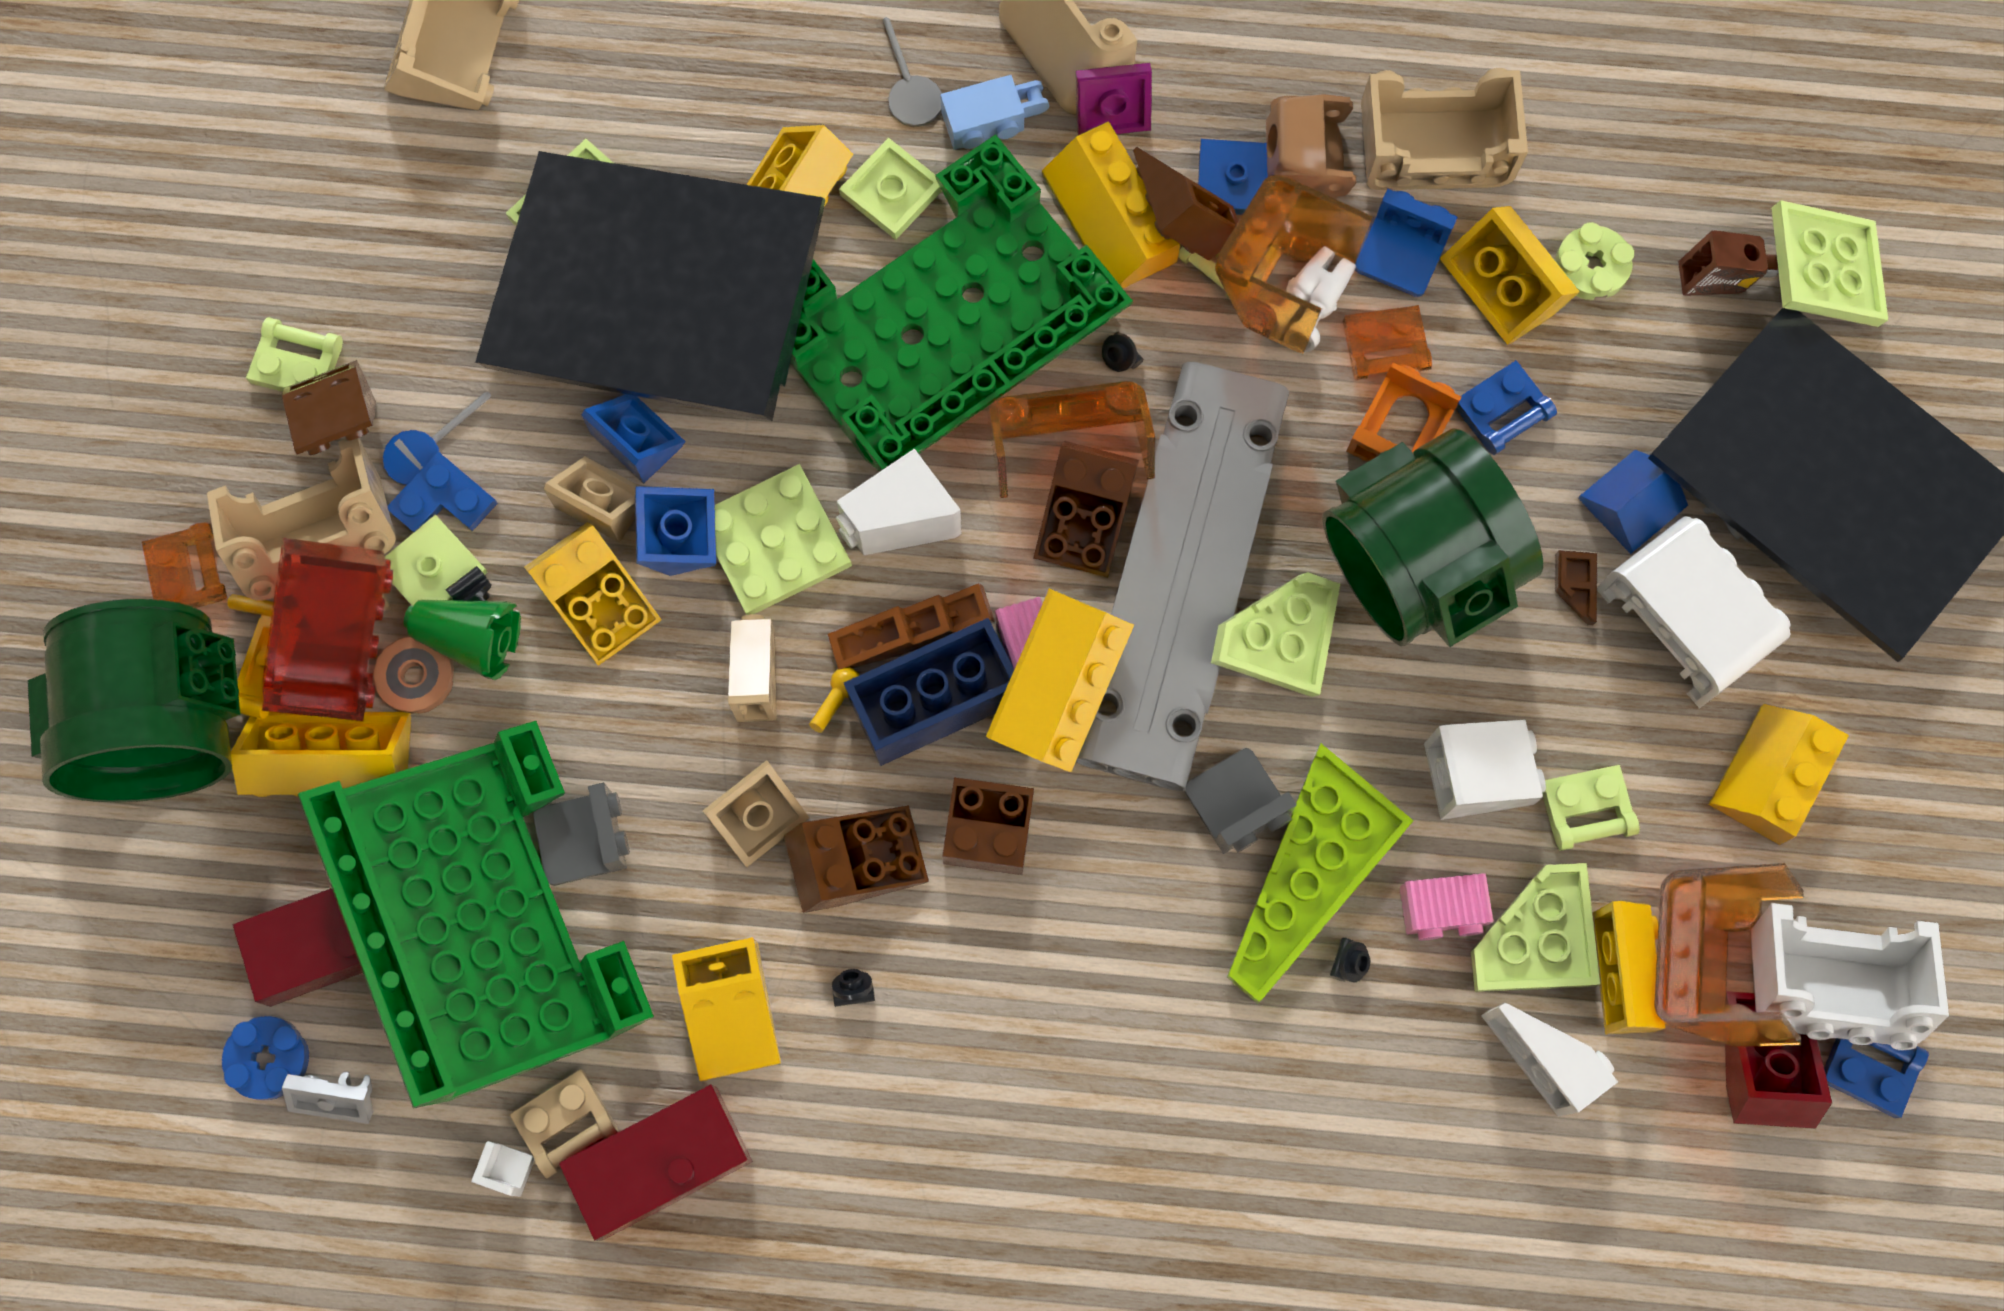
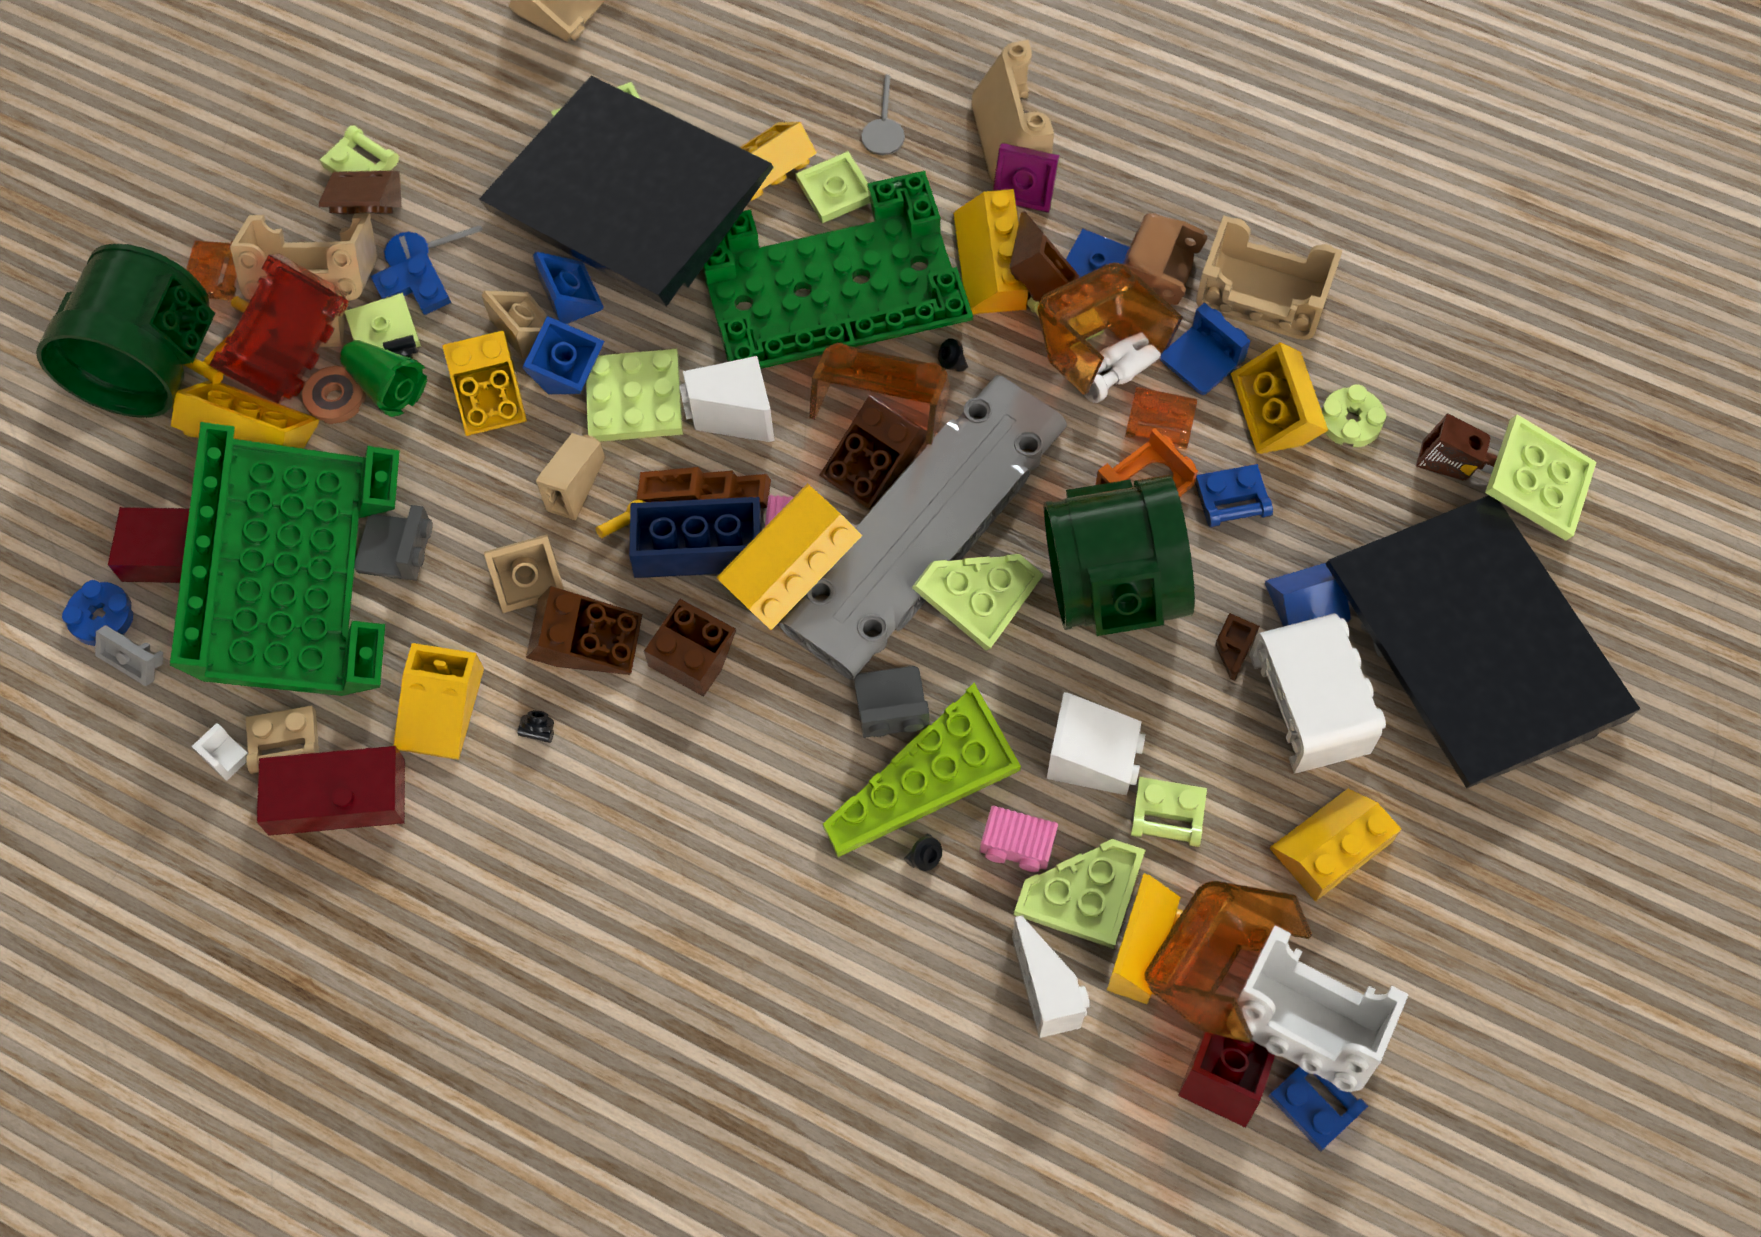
camera: 25 degrees right, 10 degrees down
(990, 109) = (935, 155): light blue brick -> none

